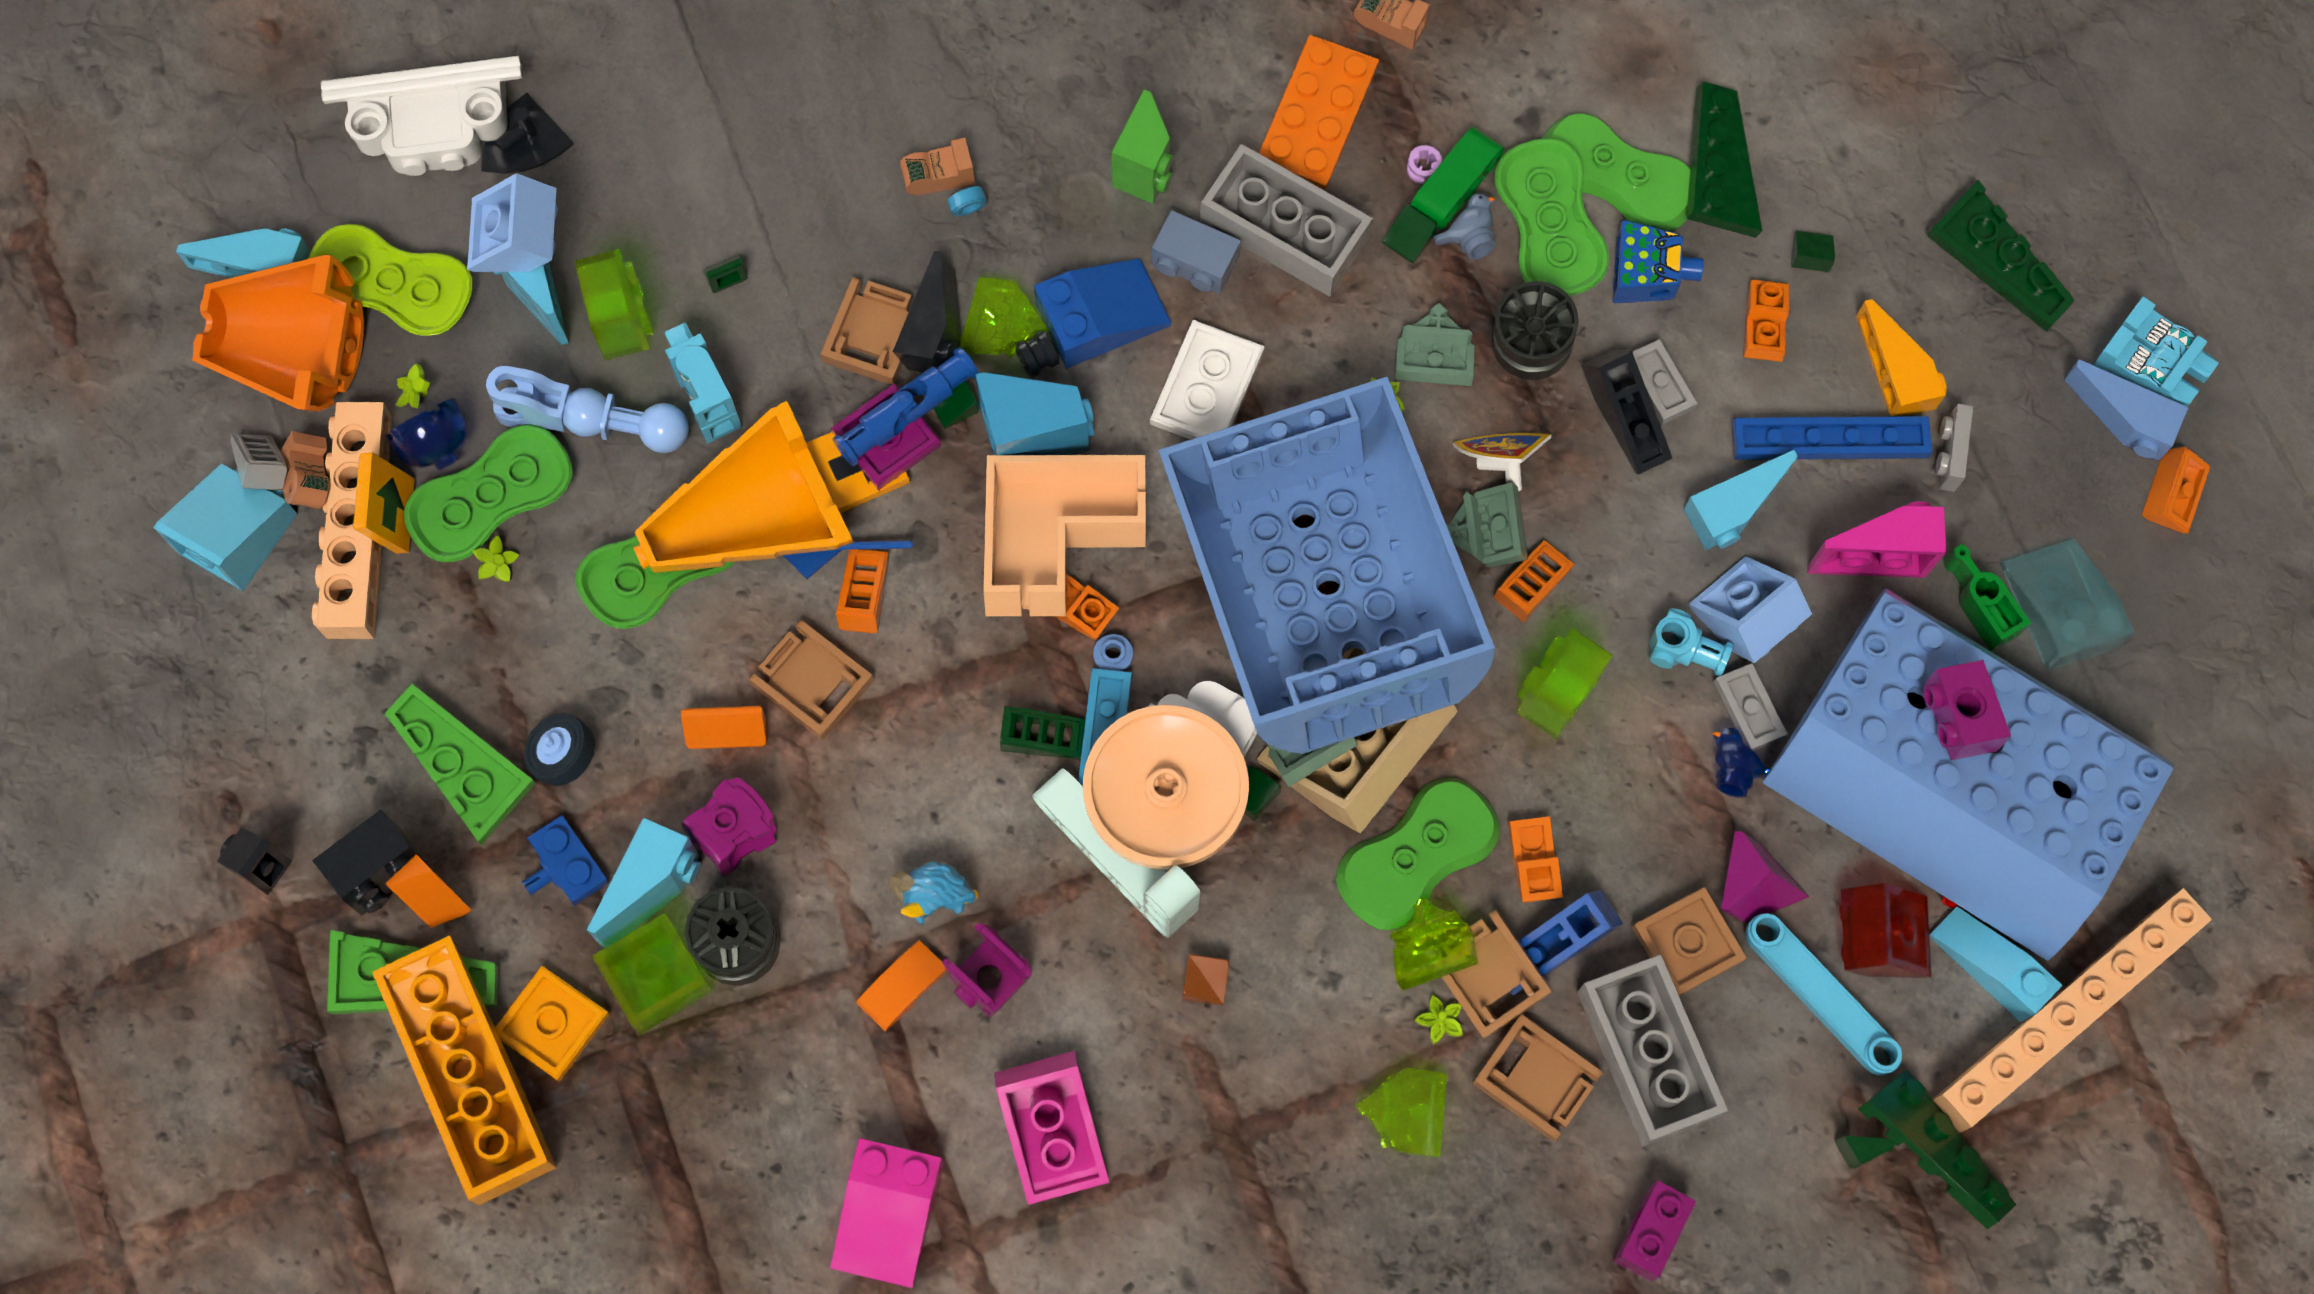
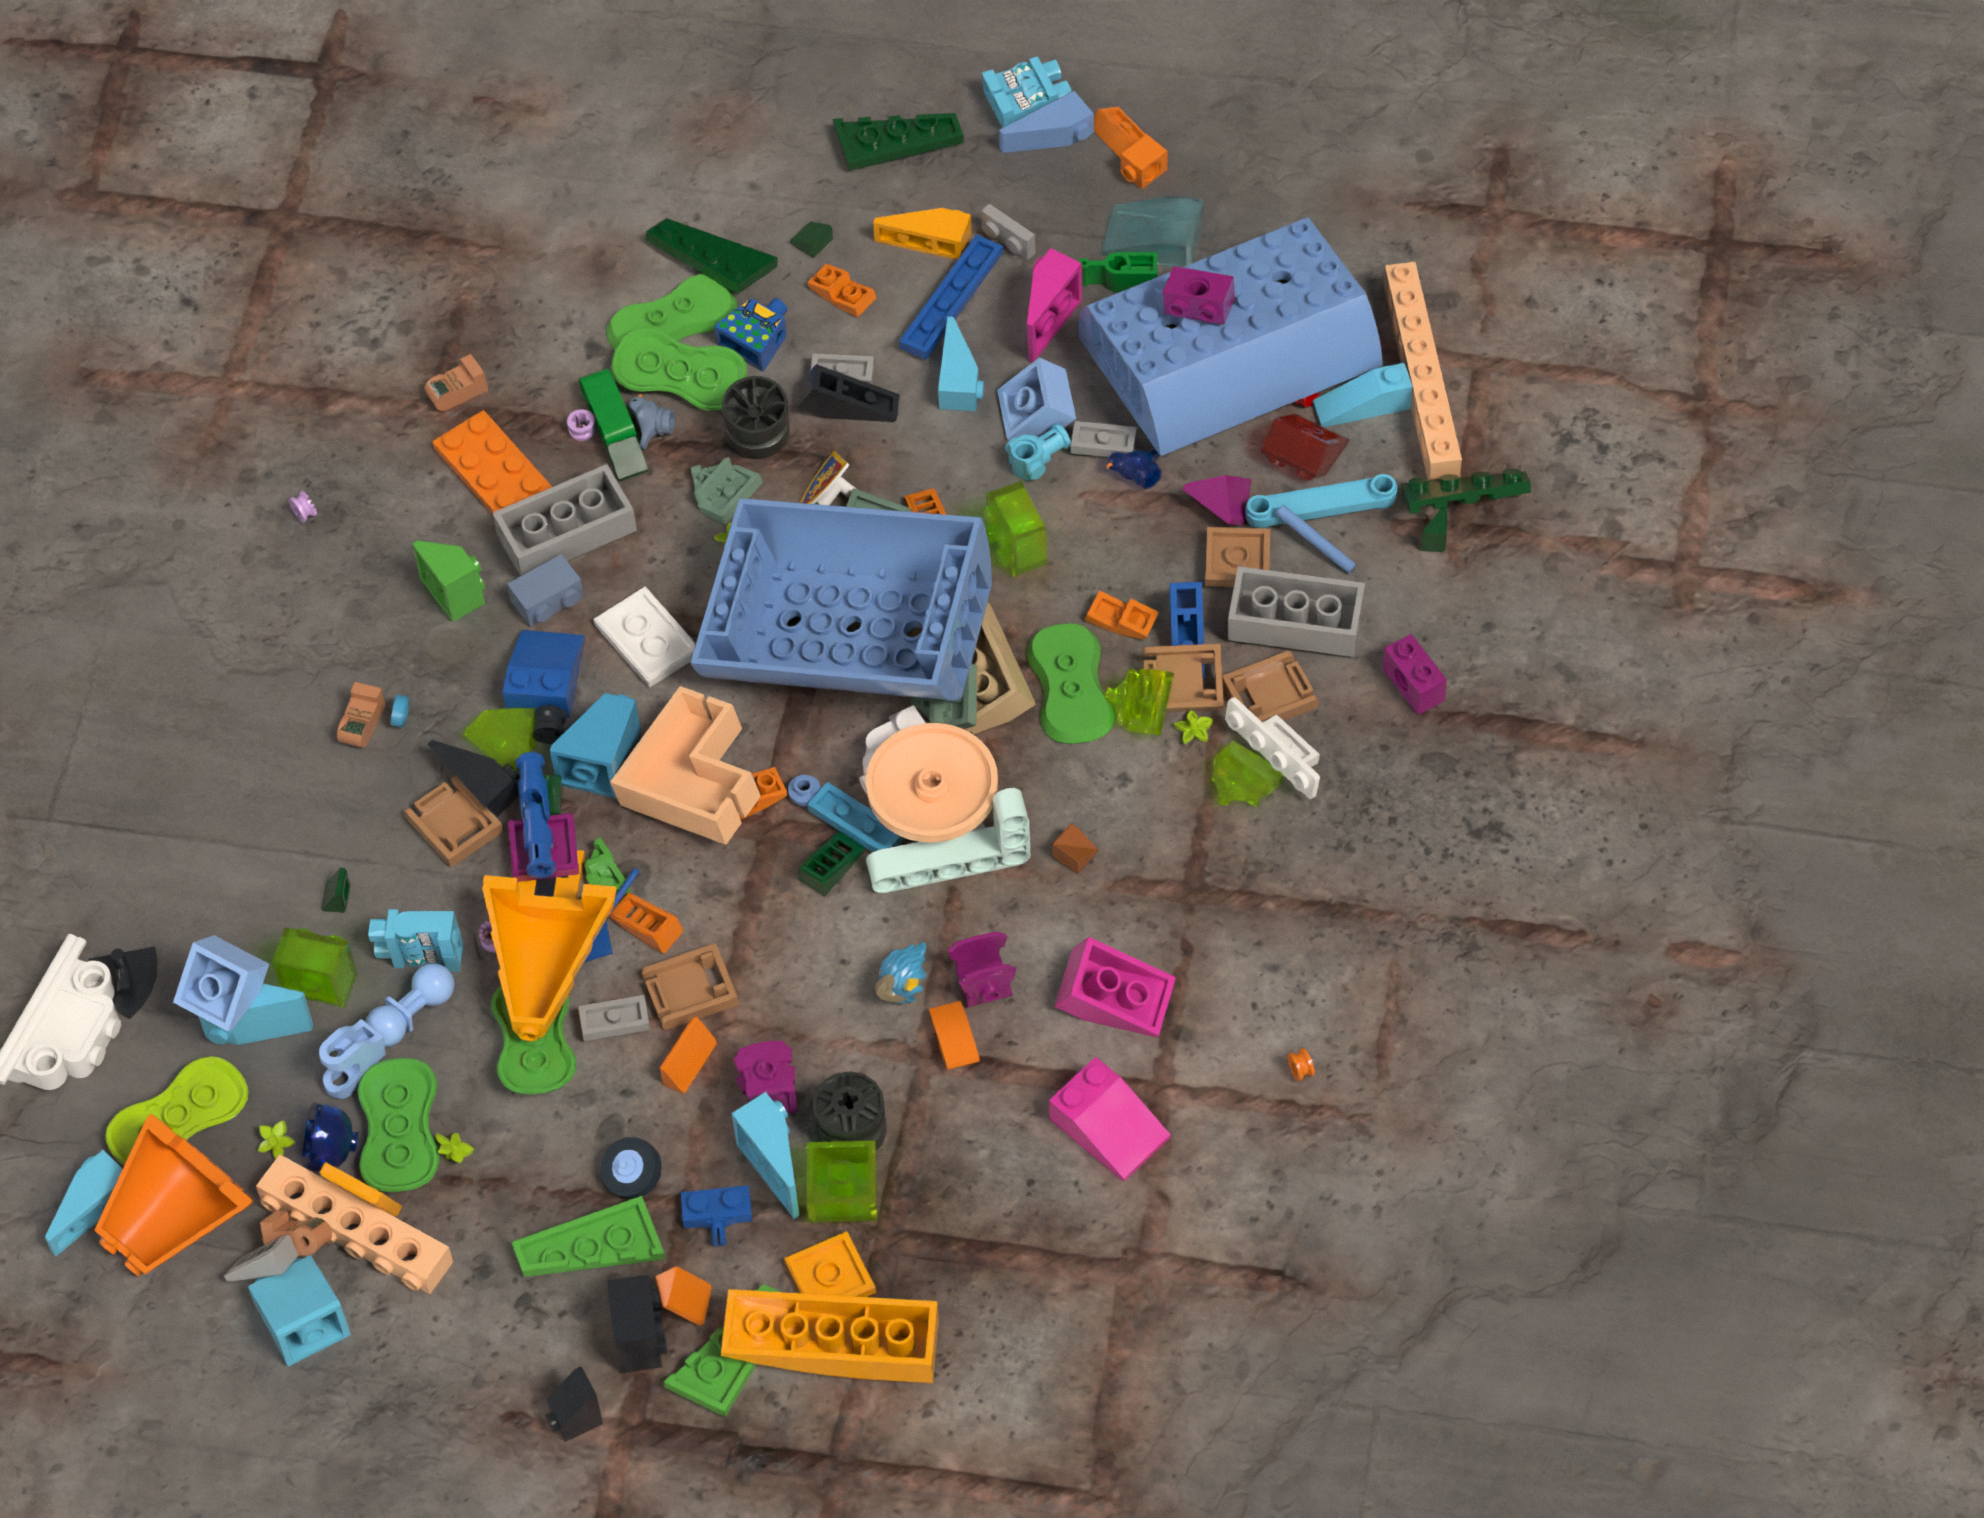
camera: 55 degrees left, 15 degrees down
(728, 626) = (614, 1018): none -> light grey plate
(895, 514) = (602, 869): none -> bright green slope
(1468, 1132) = (1278, 745): none -> white bracket
(1766, 1017) = (1316, 539): none -> medium blue bar
(2149, 537) = (1144, 161): none -> orange brick

